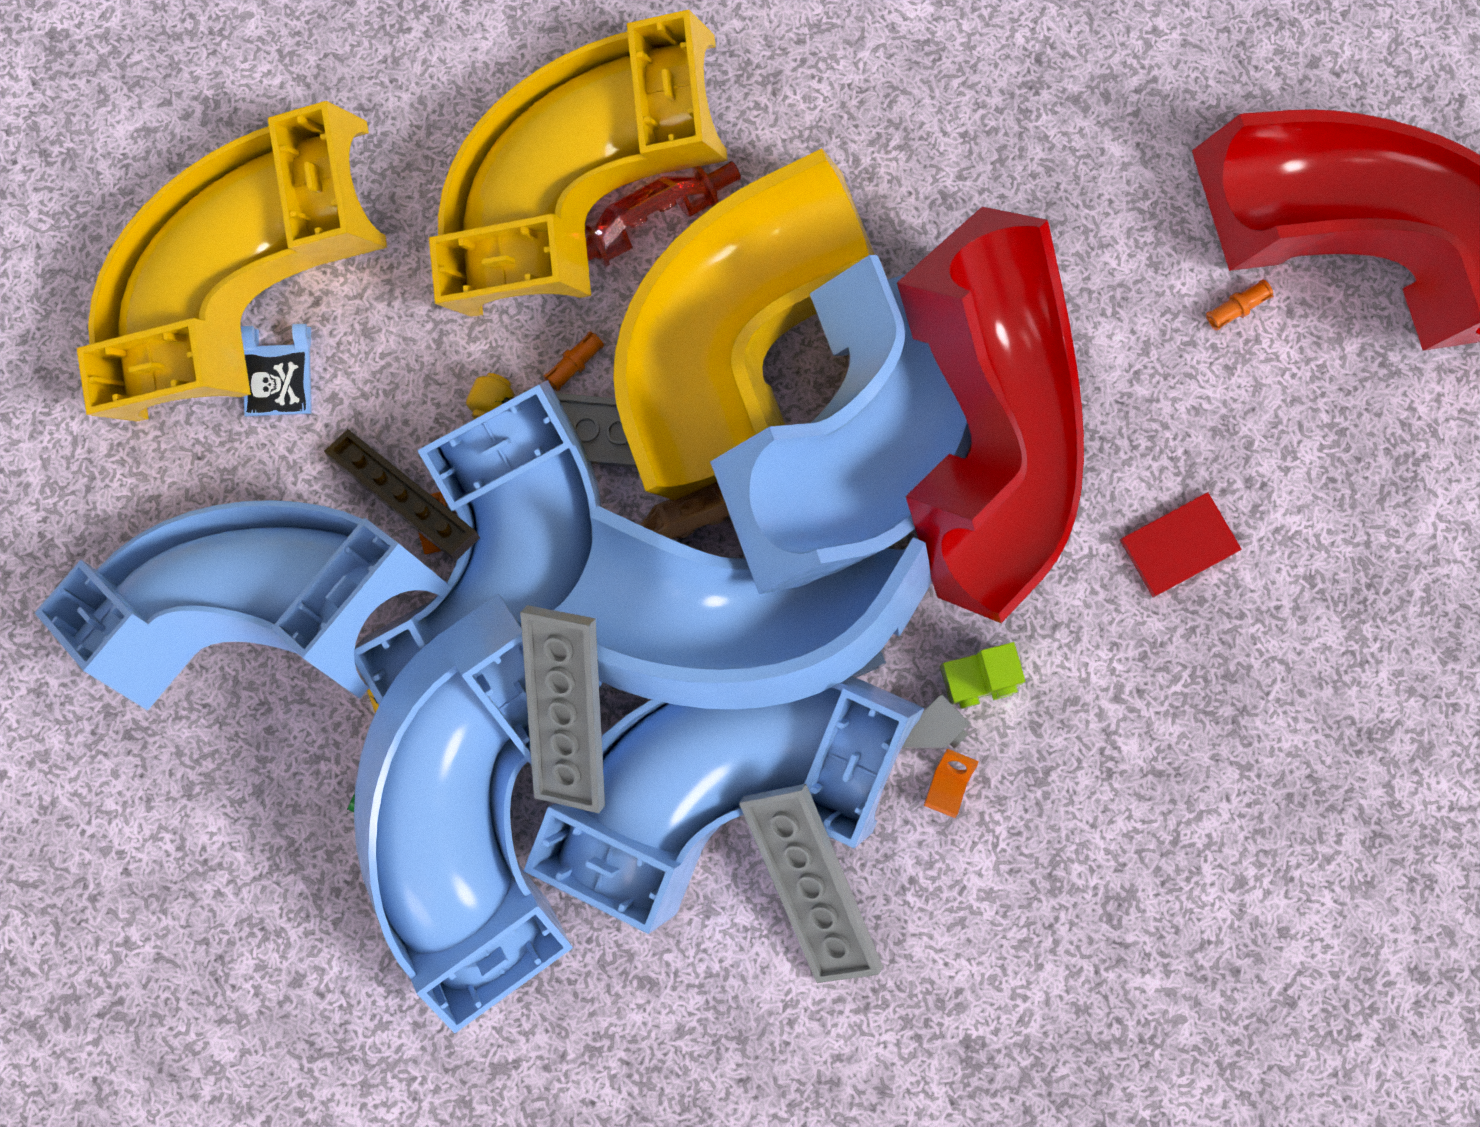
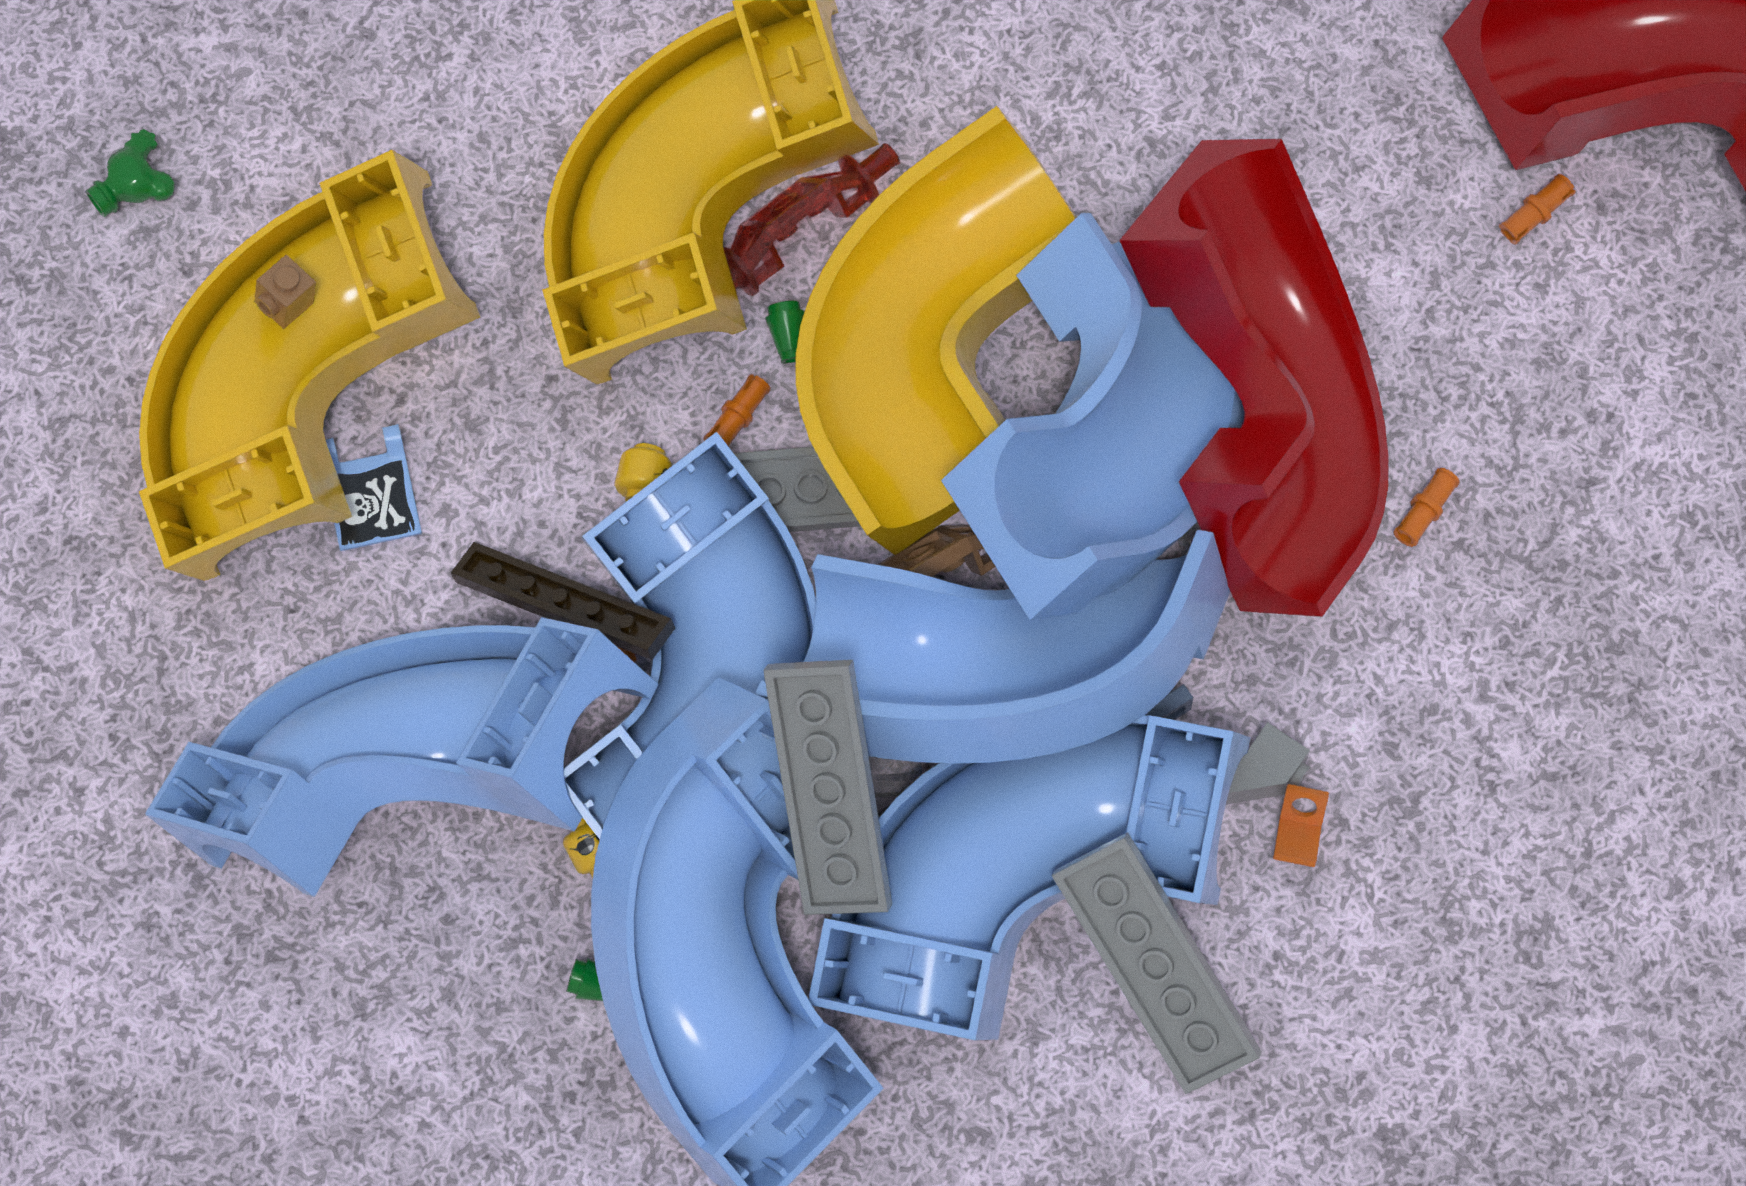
camera: 10 degrees left, 10 degrees down
(140, 84) = (131, 177): none -> green animal
(223, 203) = (284, 291): none -> medium nougat brick
(622, 294) = (784, 325): none -> green cone
(989, 672) = (1318, 692): lime brick -> none
(1103, 535) = (1426, 507): none -> orange pin
(1180, 544) = (1523, 502): red tile -> none

